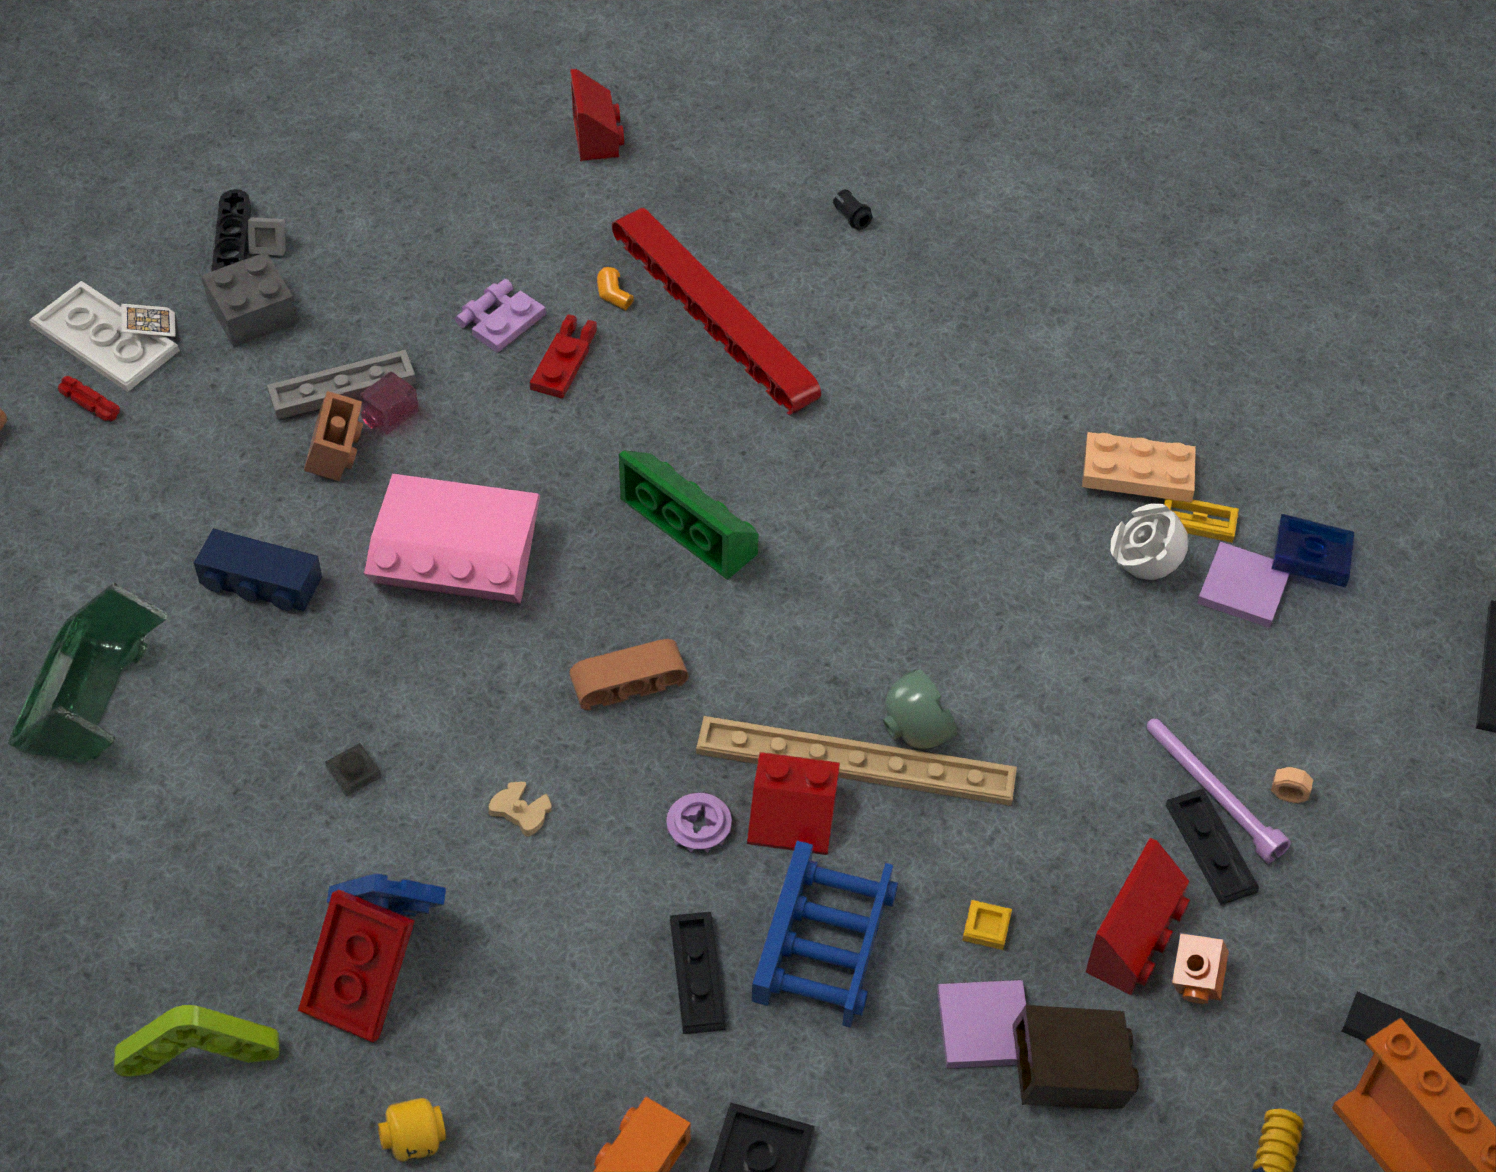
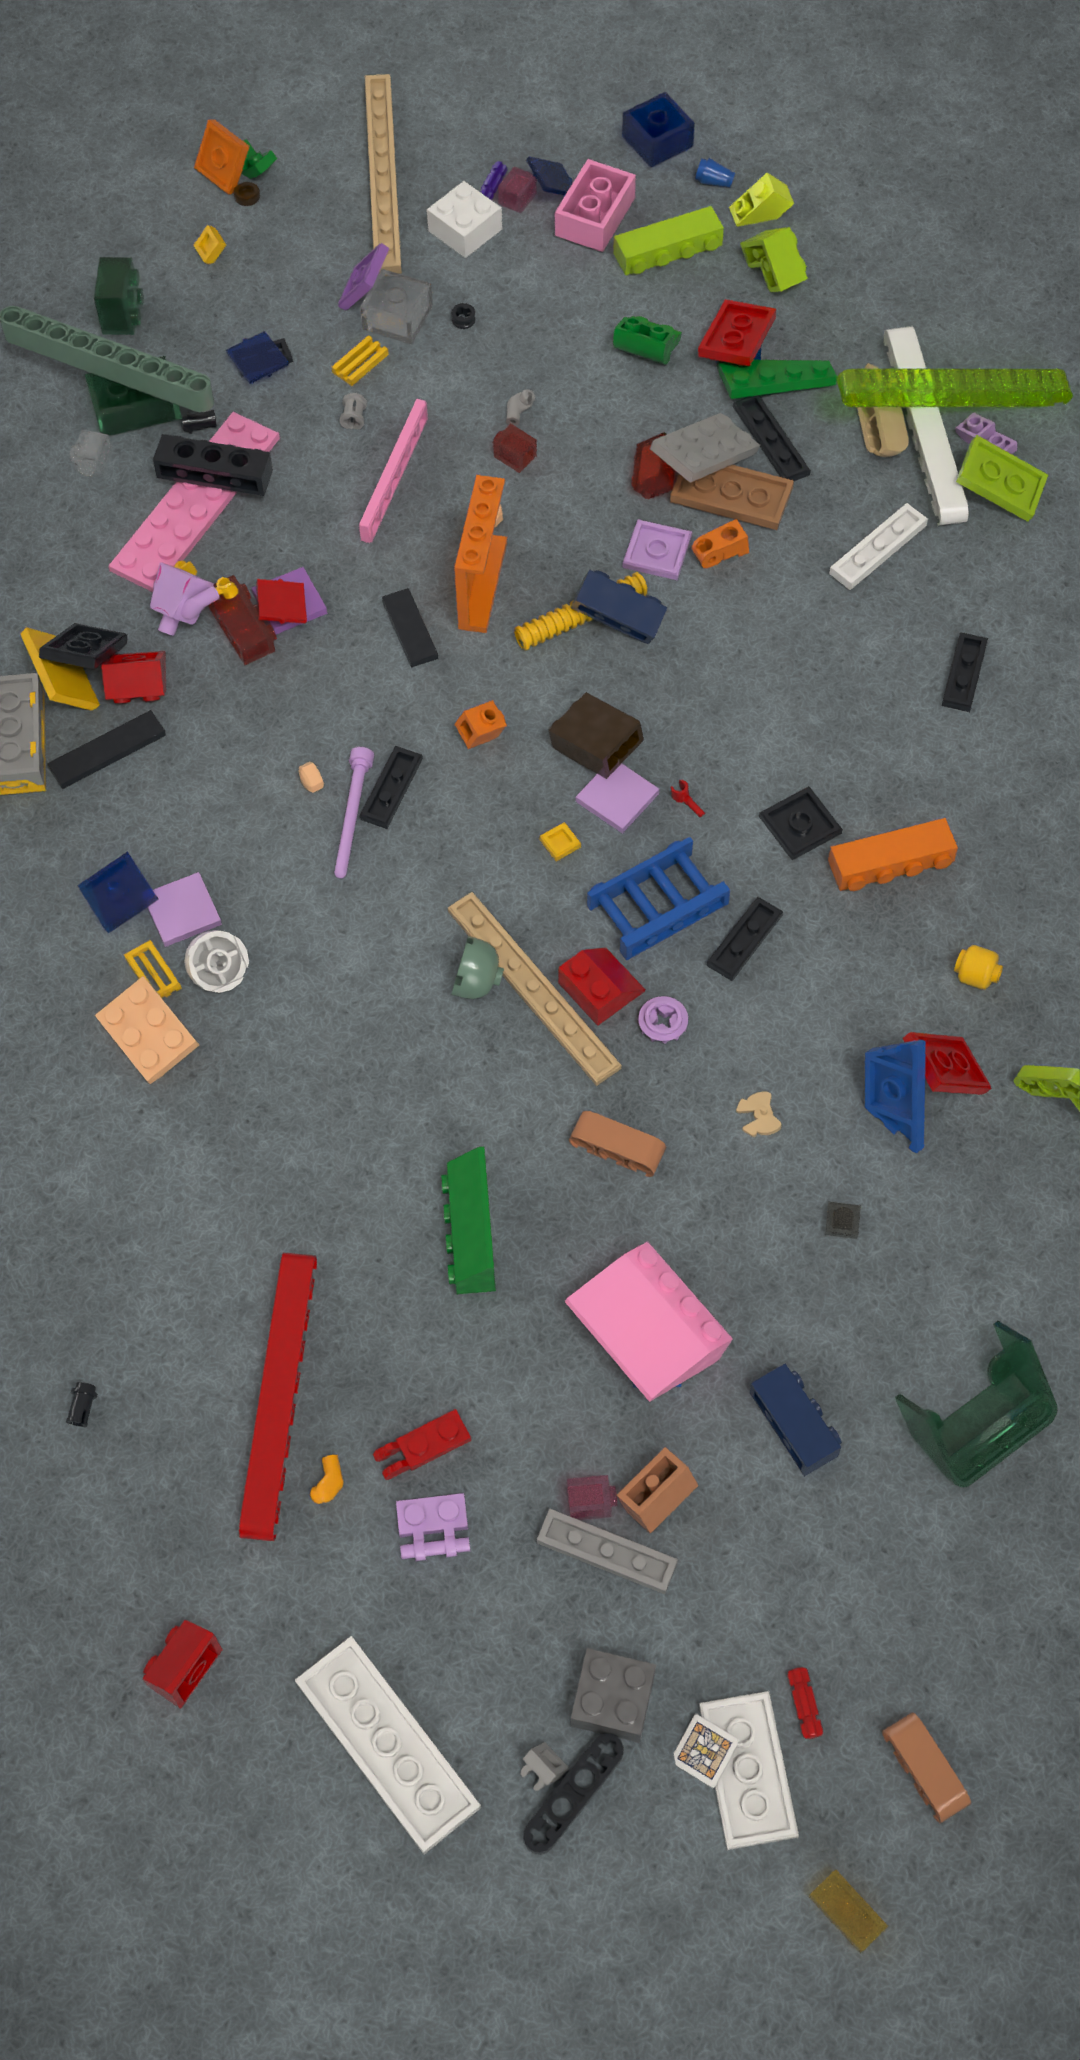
camera: 135 degrees left, 10 degrees up
(400, 180) = (388, 1745): none -> white plate
(911, 1082) = (683, 796): none -> red hand
(1139, 920) = (486, 771): red slope -> none

